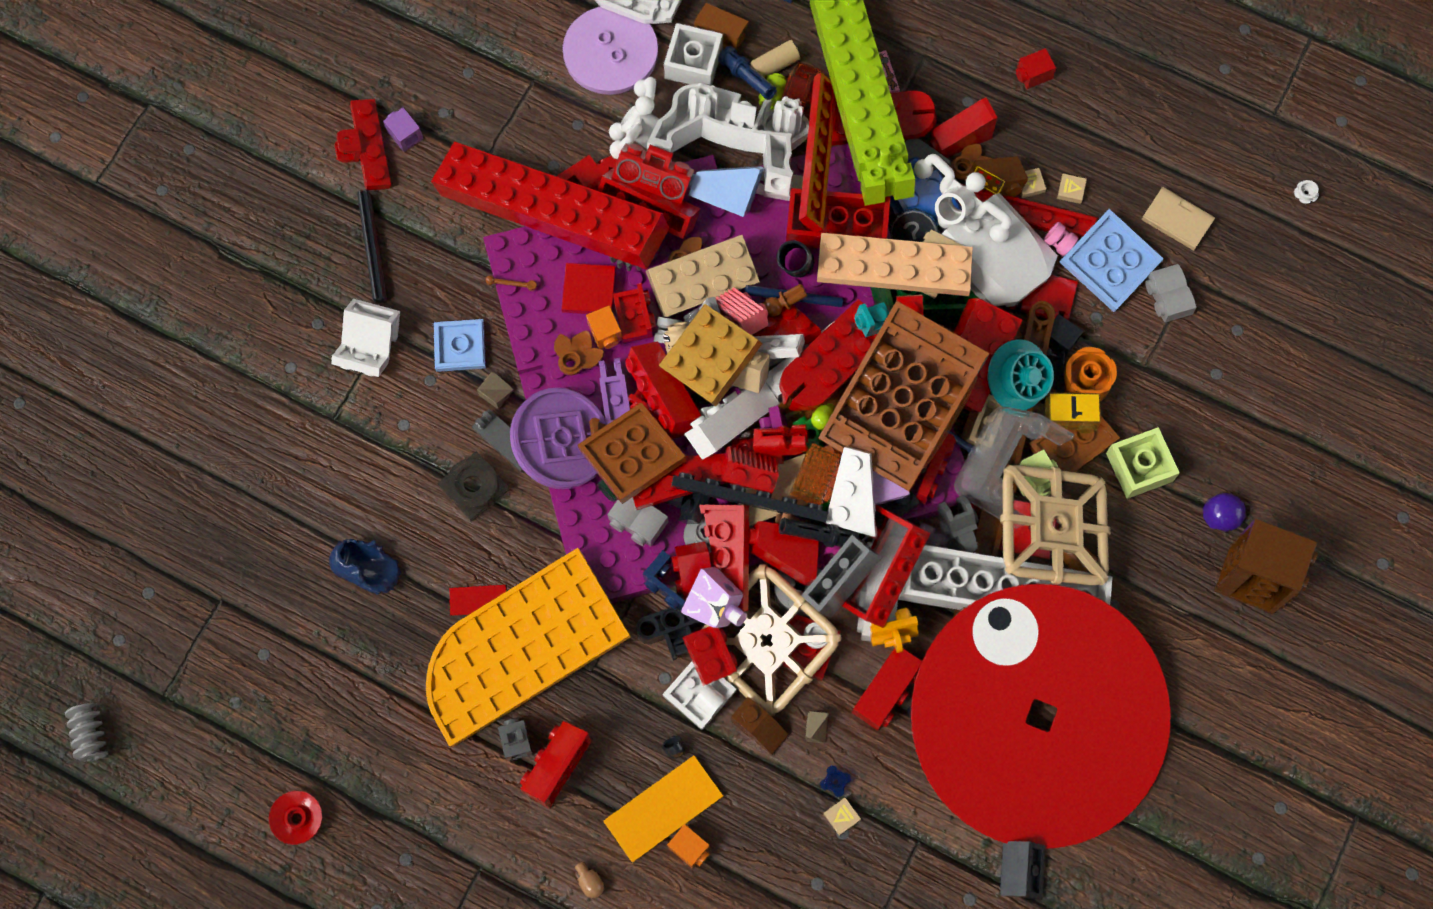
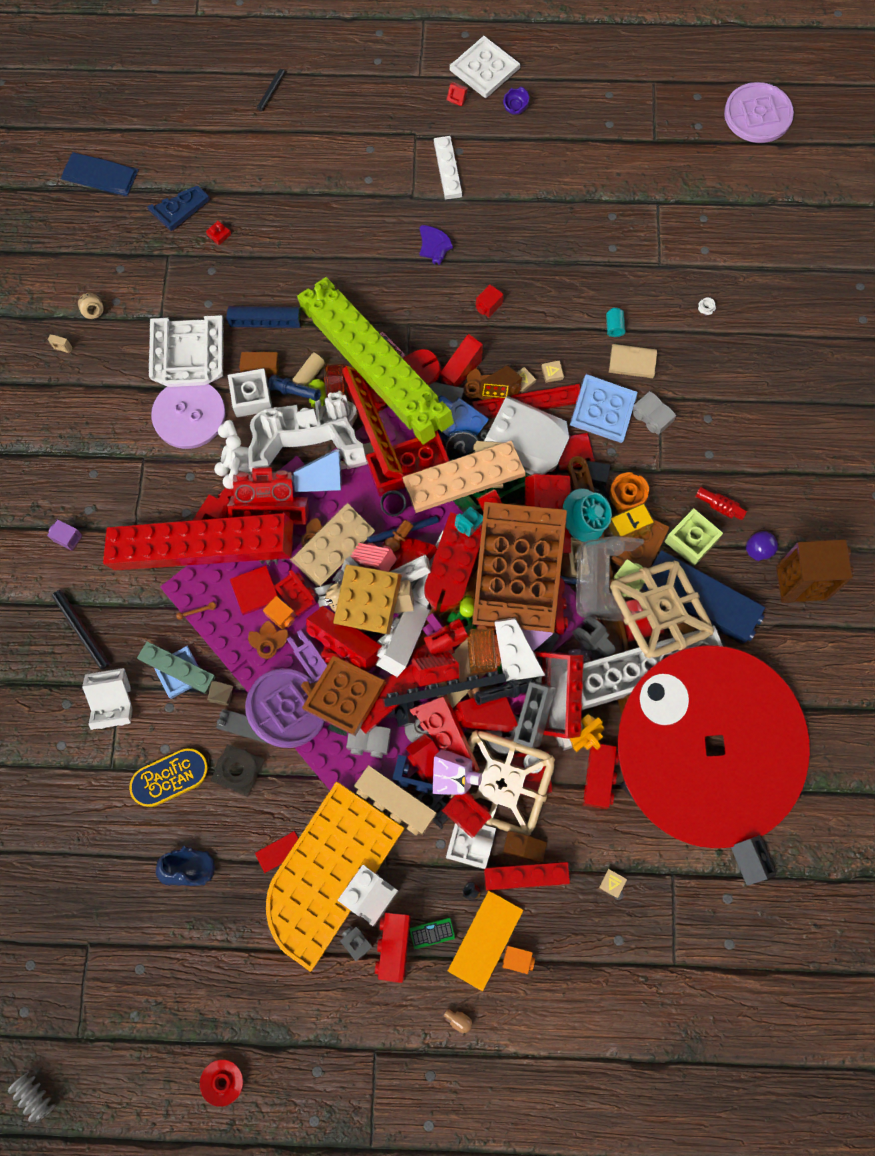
camera: 25 degrees left, 0 degrees up
(365, 144) = (41, 557): red plate -> none
(393, 458) = (168, 777): none -> tile
(458, 338) = (176, 667): none -> sand green plate
(553, 692) = (368, 895): none -> white piece
(606, 771) = (432, 933): none -> tile
(634, 600) = (395, 800): none -> tan brick
(744, 759) = (526, 876): none -> red brick
(816, 727) = (564, 828): dark tan slope -> none
(843, 779) = (596, 855): clear blue plate -> none
(971, 205) = (498, 413): white wheel -> none
(1060, 239) = (563, 409): bright pink wheel -> none
(1134, 557) = (726, 608): none -> dark blue brick
(1180, 162) = (615, 322): none -> teal brick
(1199, 439) = (721, 504): none -> red hinge

